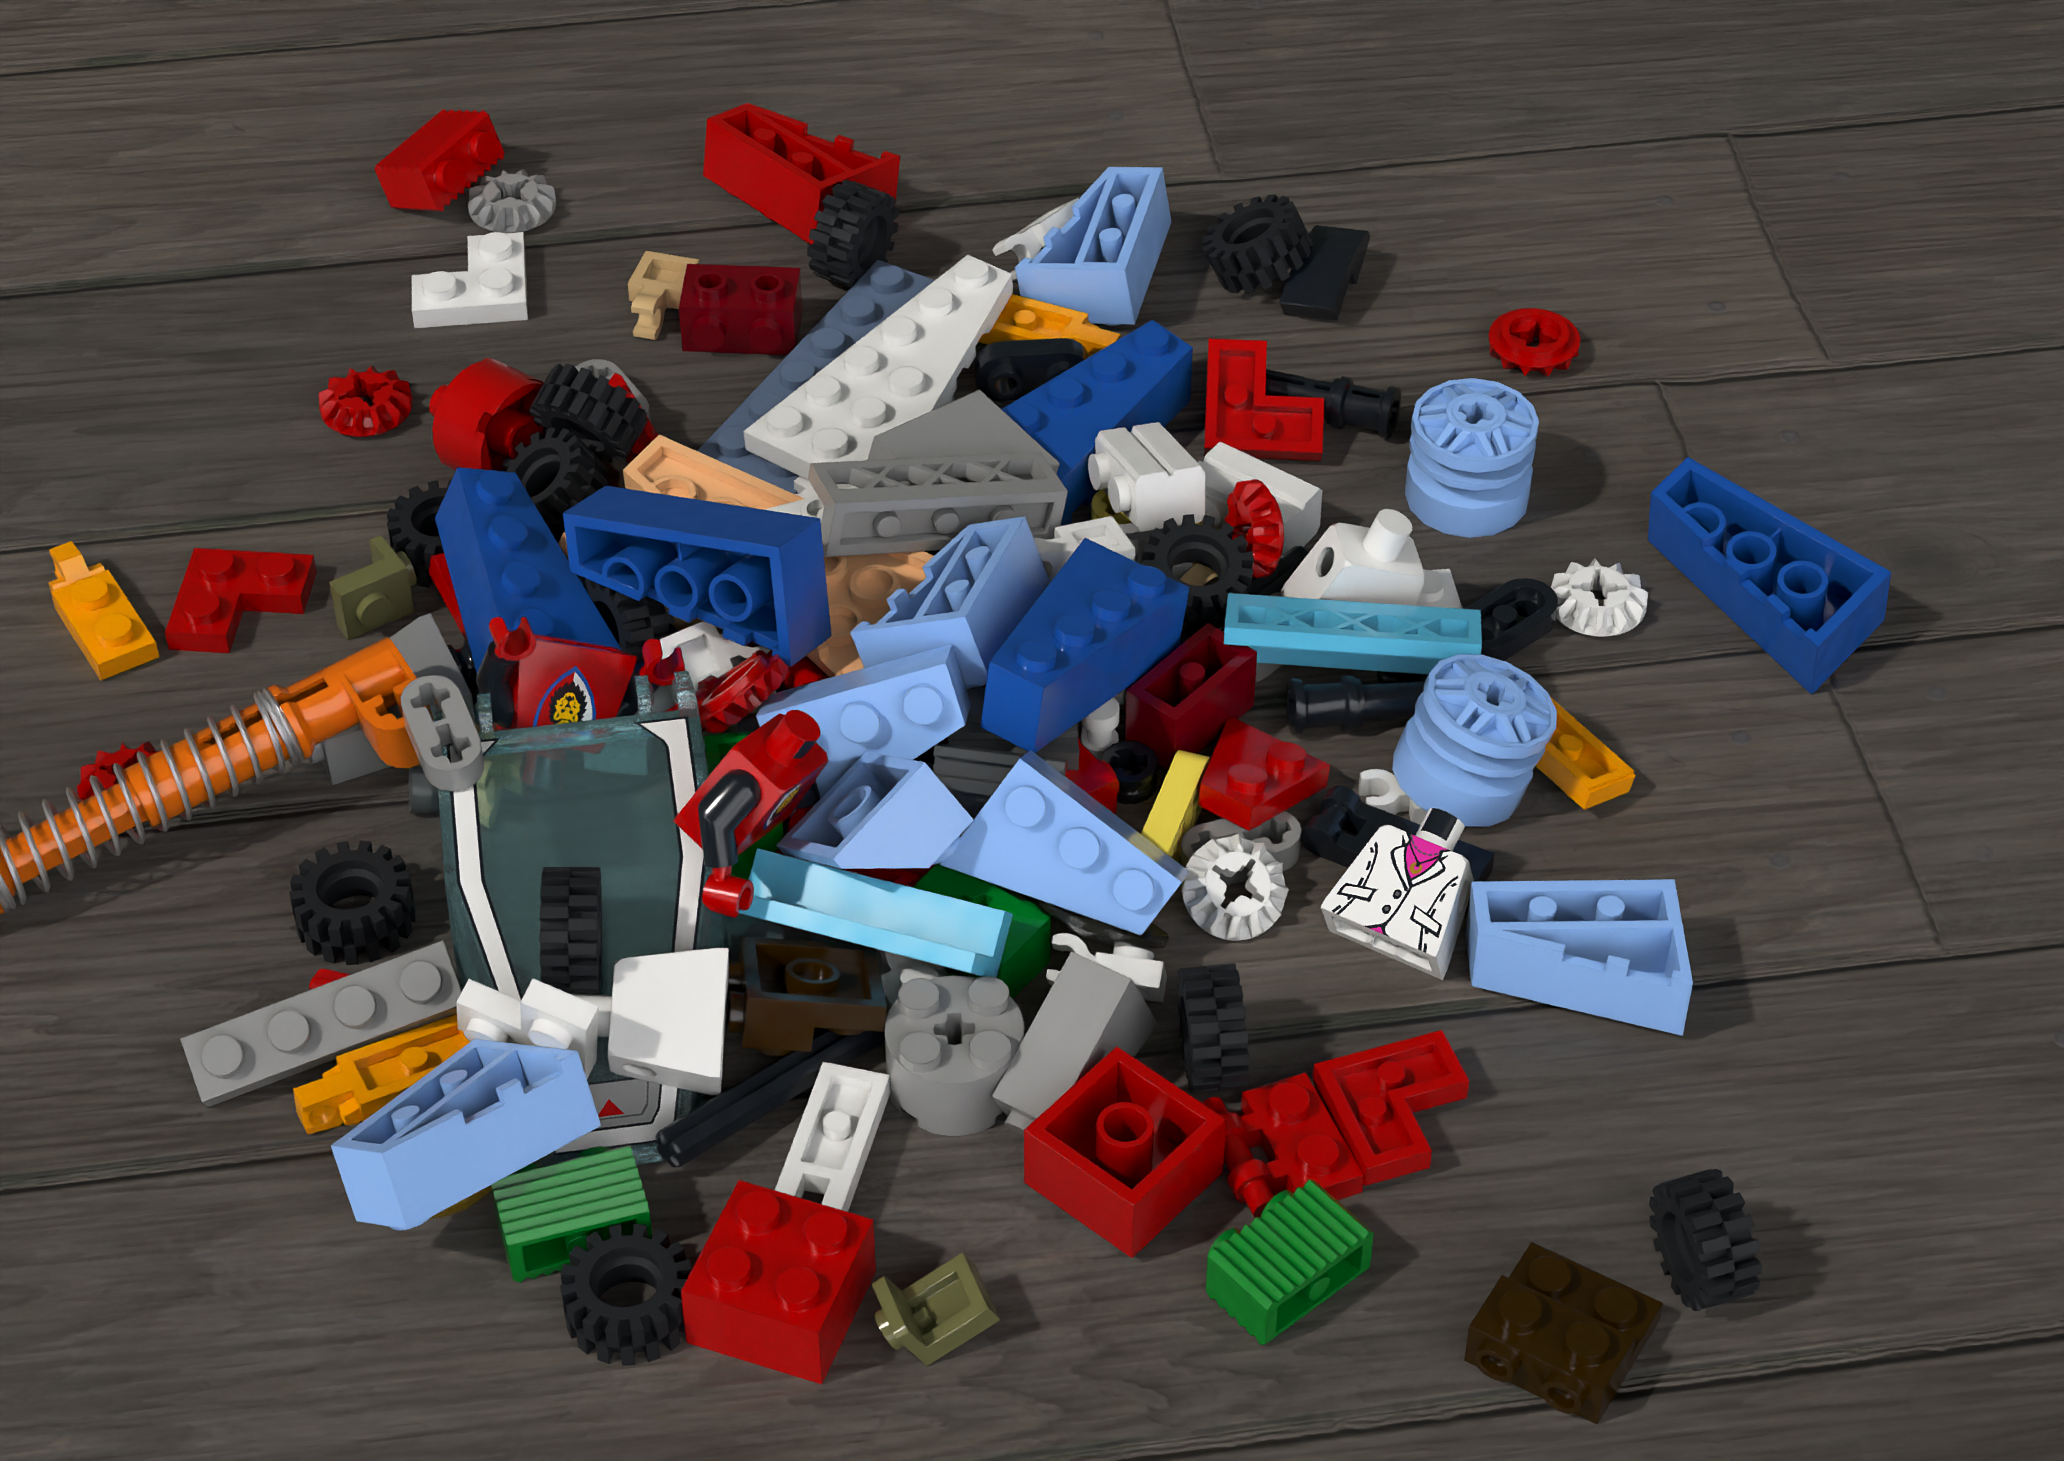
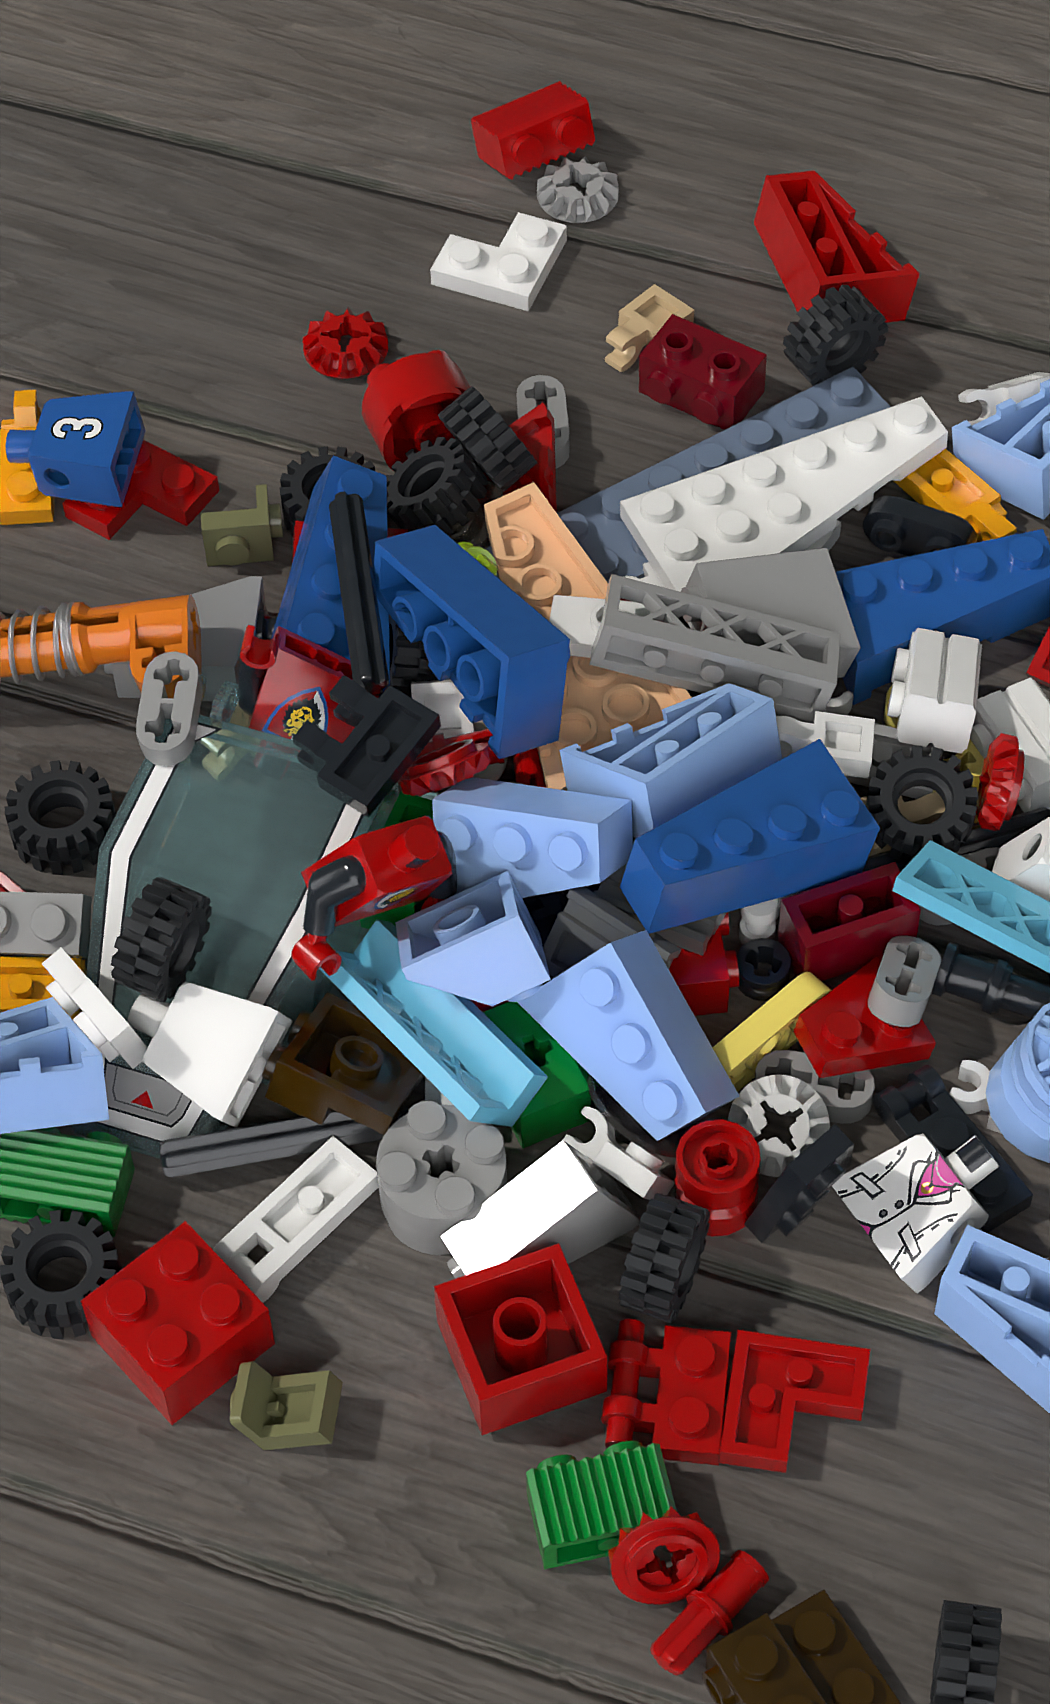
camera: 30 degrees right, 10 degrees up
(163, 567) = (83, 447): none -> blue torso
(566, 572) = (358, 593): none -> black axle
(680, 690) = (376, 753): none -> black plate
(1212, 928) = (719, 1172): none -> red wheel
(1274, 721) = (904, 981): none -> light grey beam
(1307, 908) = (802, 1185): none -> black wing
(1400, 1267) = (646, 1578): none -> red gear
(1443, 1306) = (709, 1613): none -> red axle

